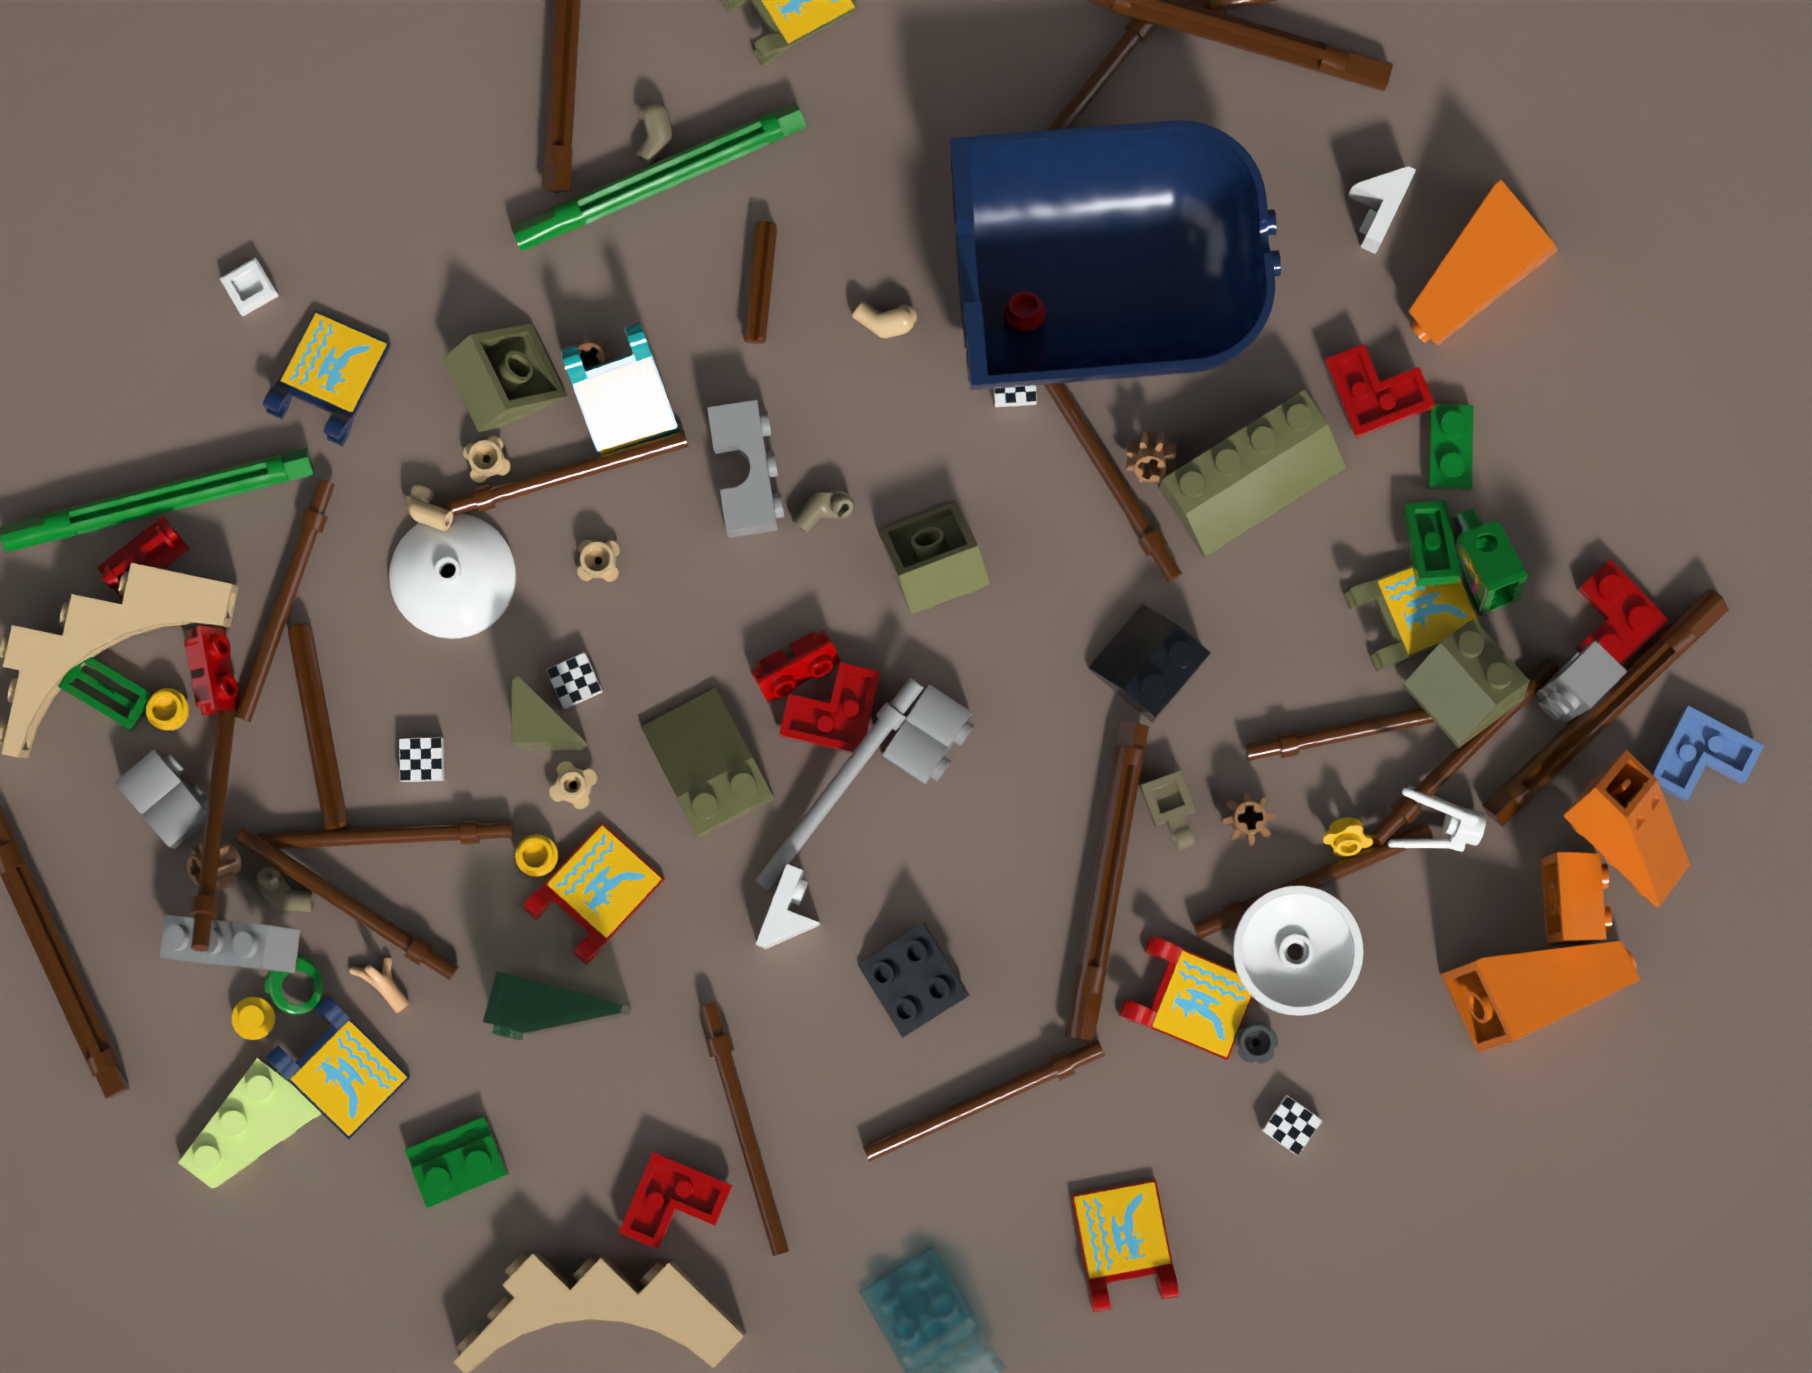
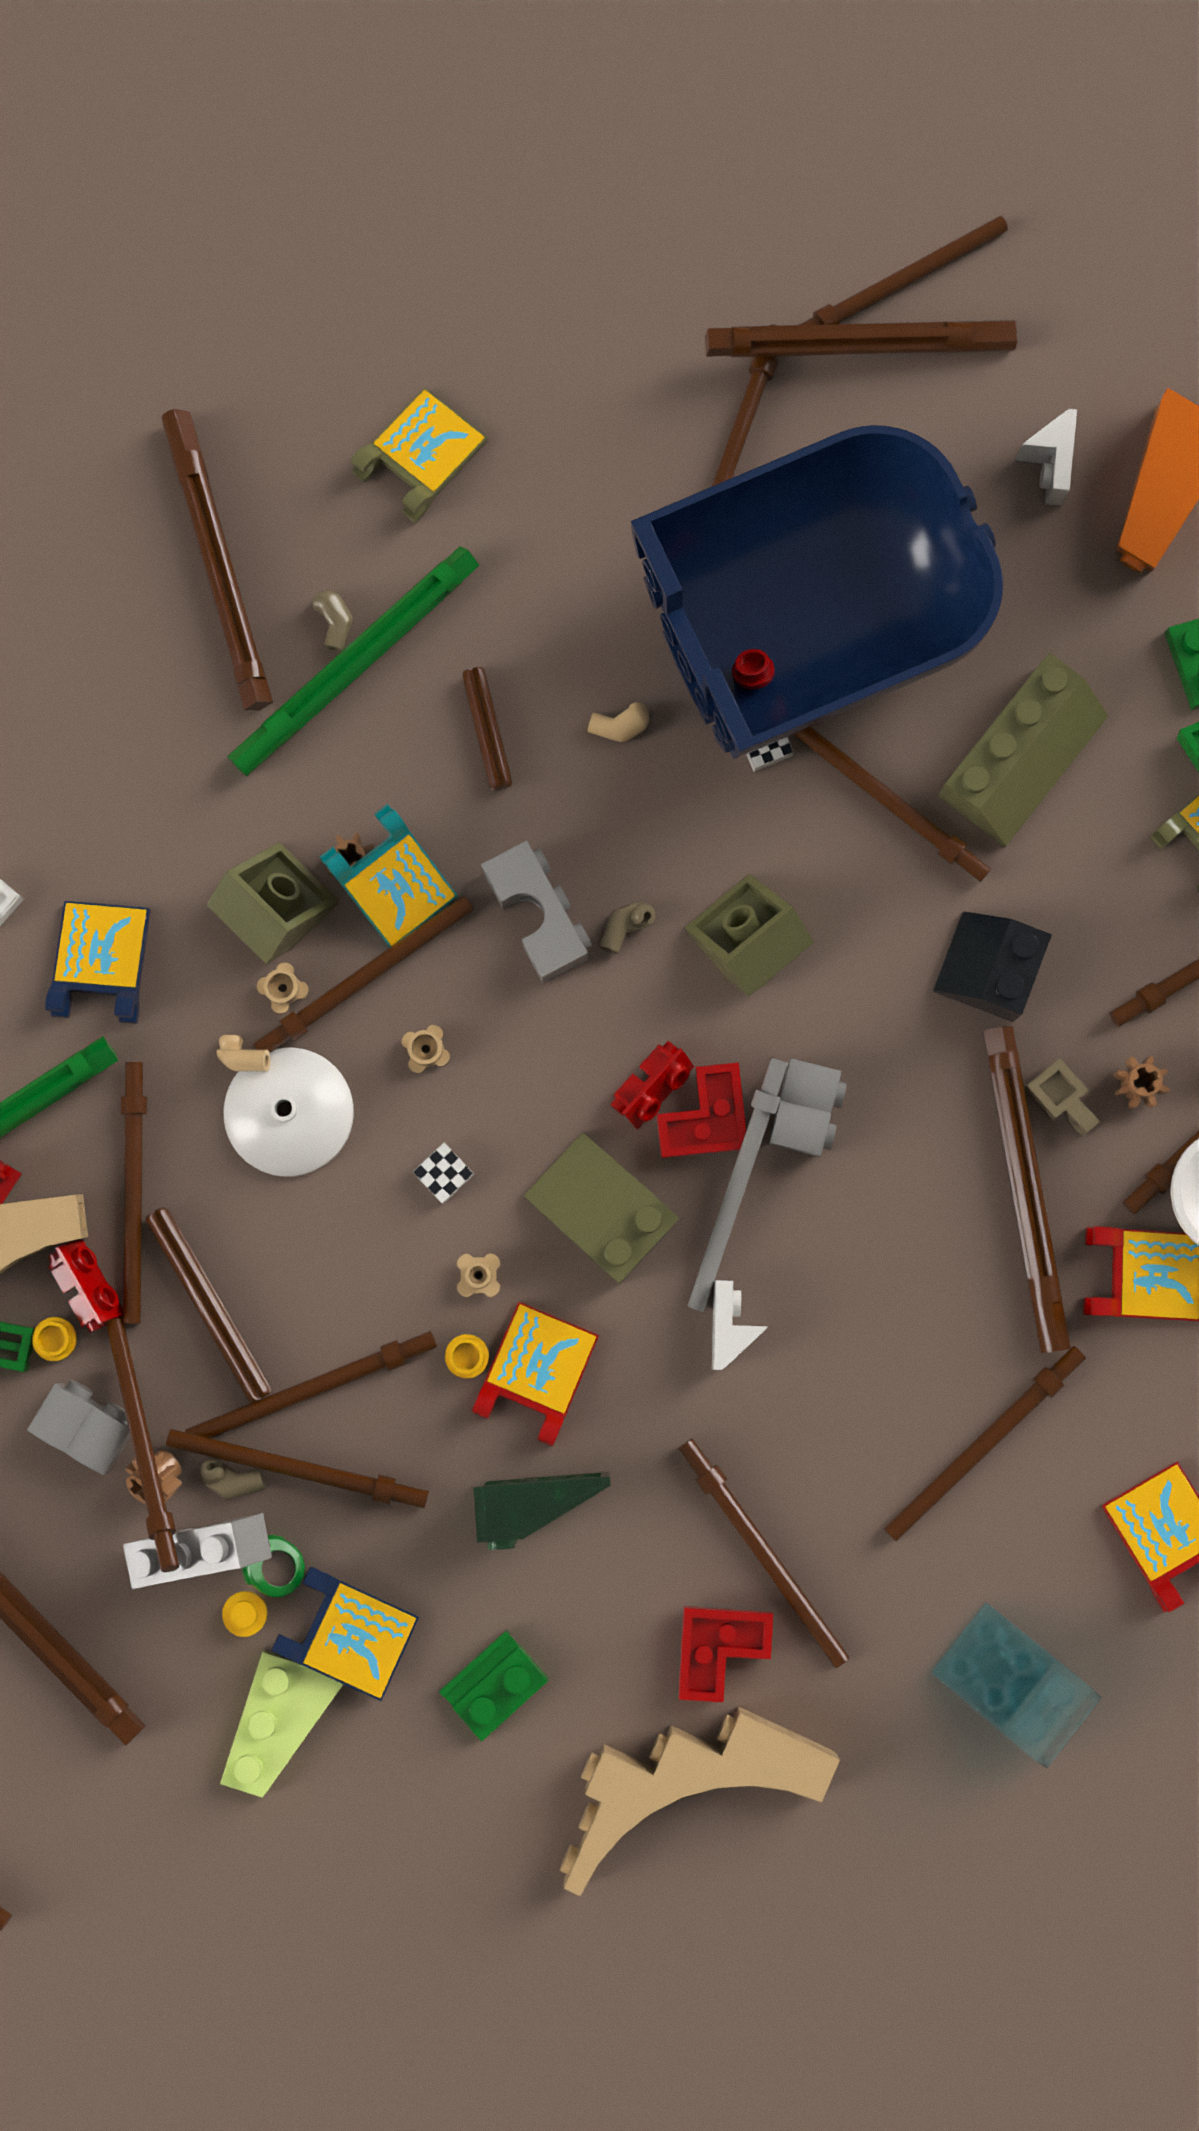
camera: 20 degrees left, 0 degrees up
(383, 983) = (361, 1534): light nougat bar -> none
(421, 759) = (321, 1301): tile -> none
(537, 725) = (425, 1227): olive slope -> none
(913, 979) = (876, 1349): black hinge -> none
(1151, 456) = (923, 767): medium nougat gear -> none
(1374, 403) = (1109, 645): red plate -> none

